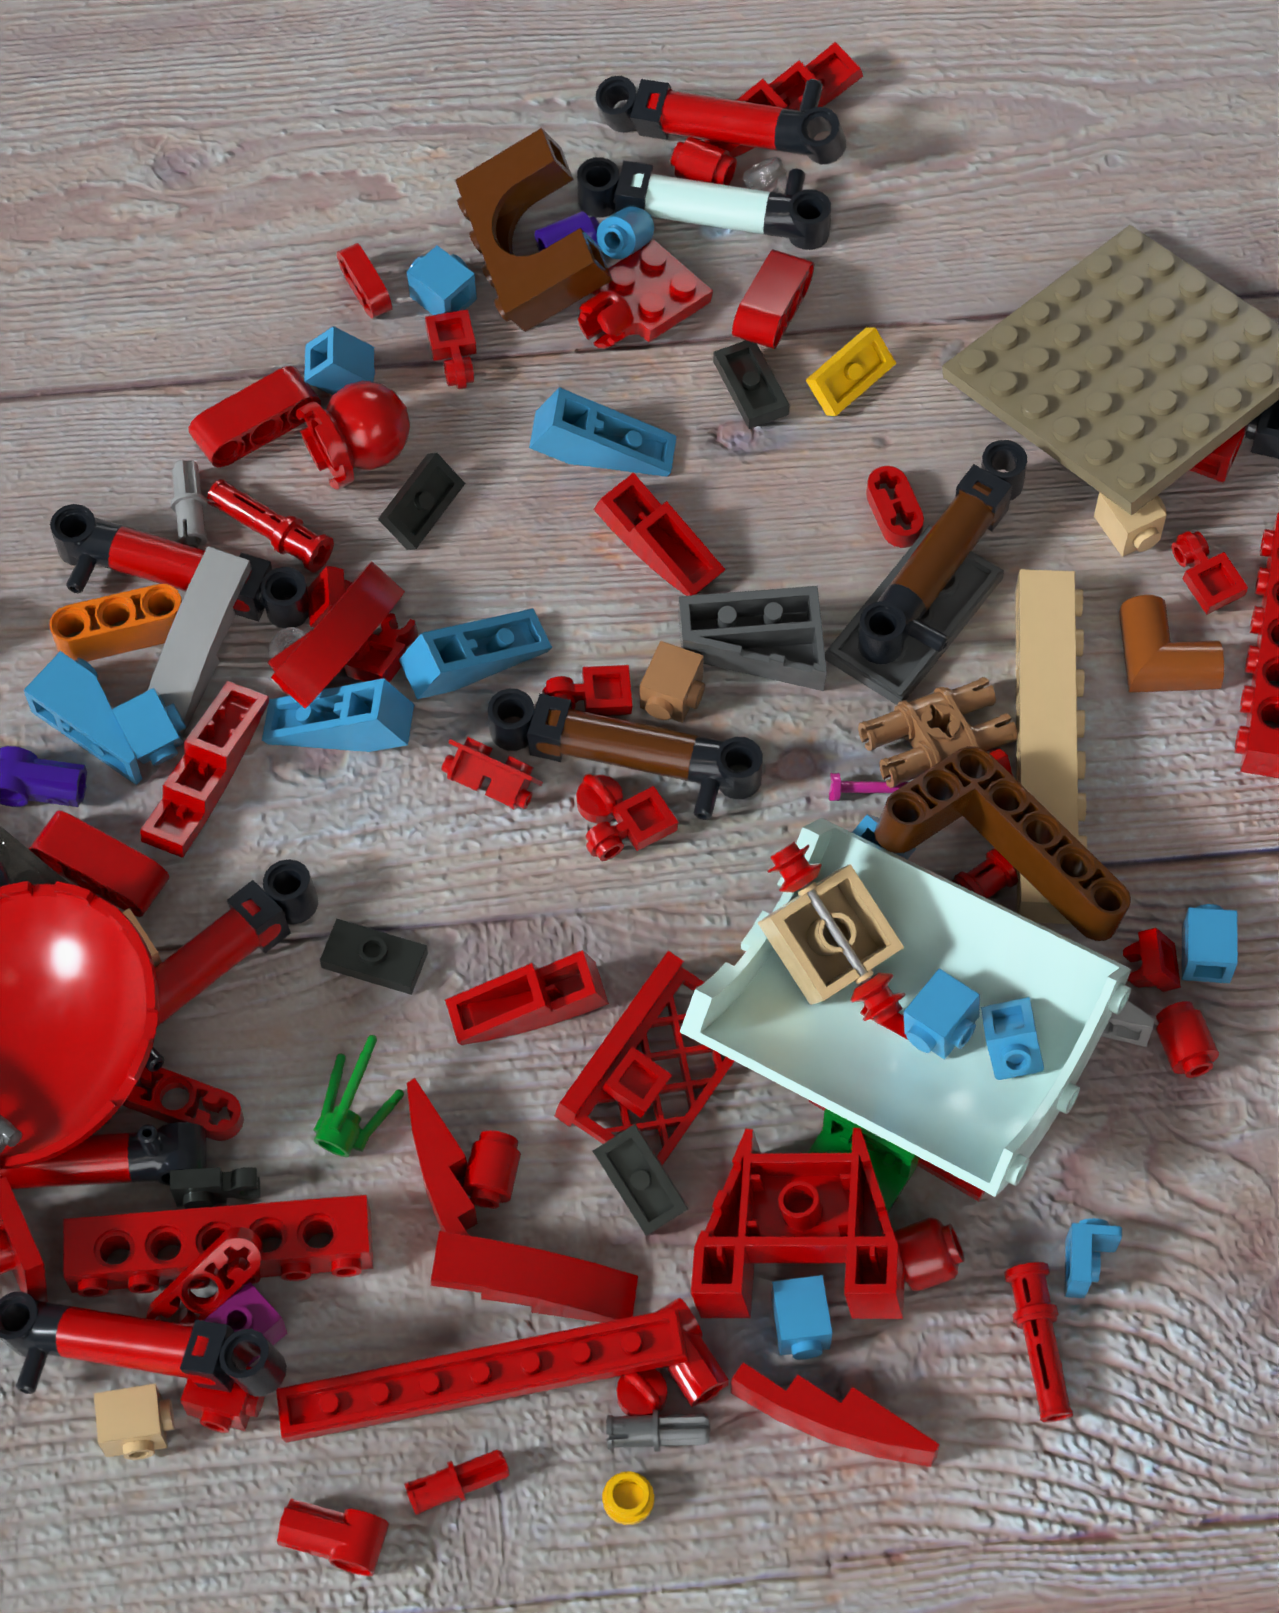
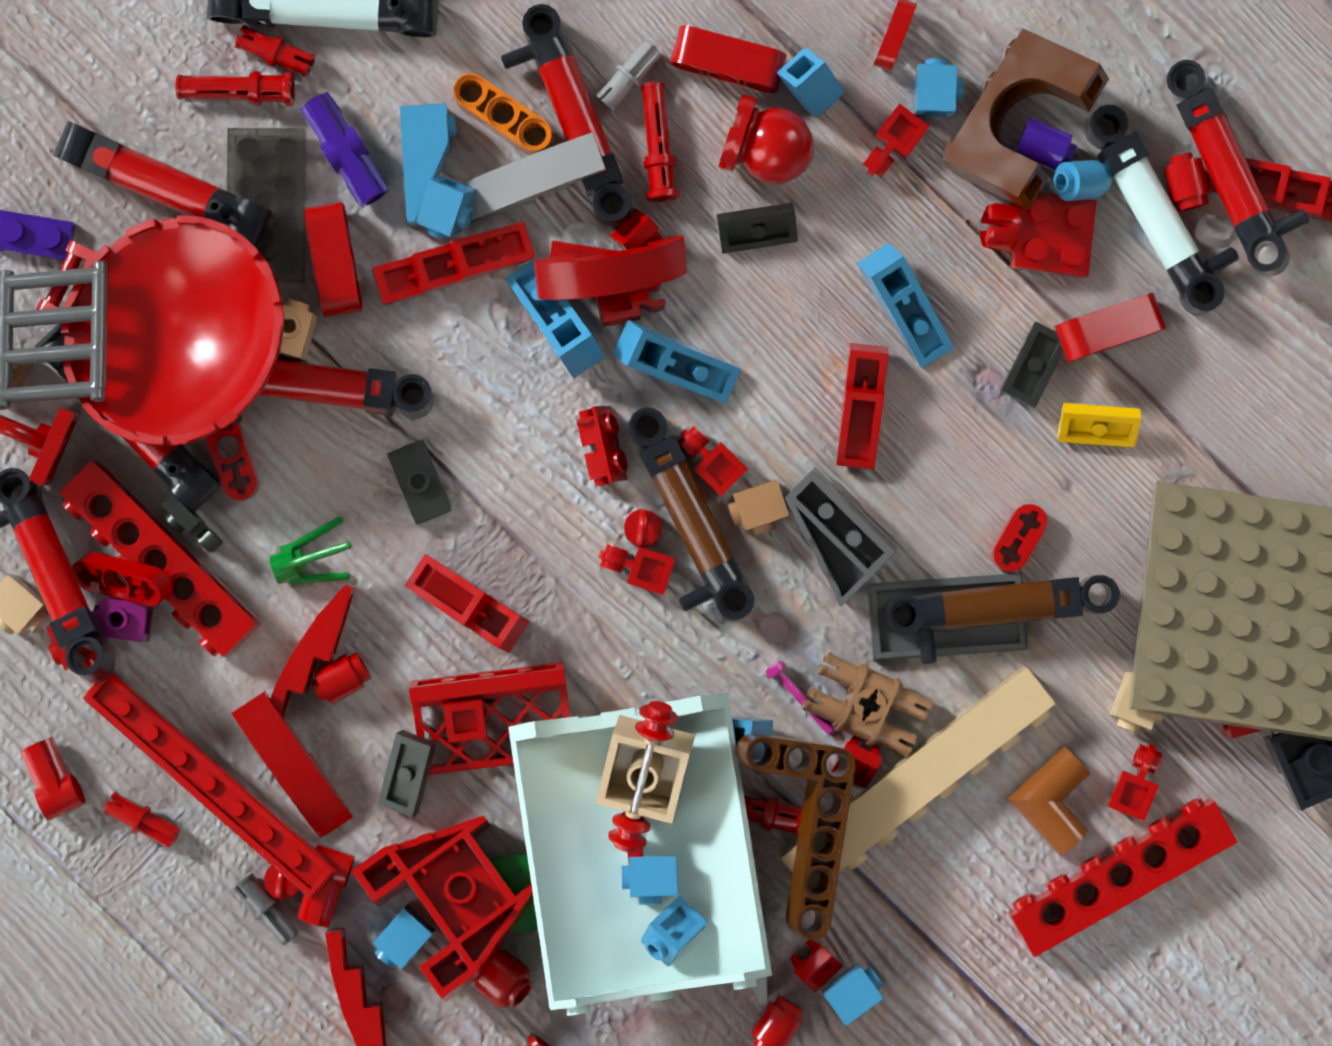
camera: 50 degrees right, 25 degrees up
(628, 1498) = (215, 925): yellow plate -> none

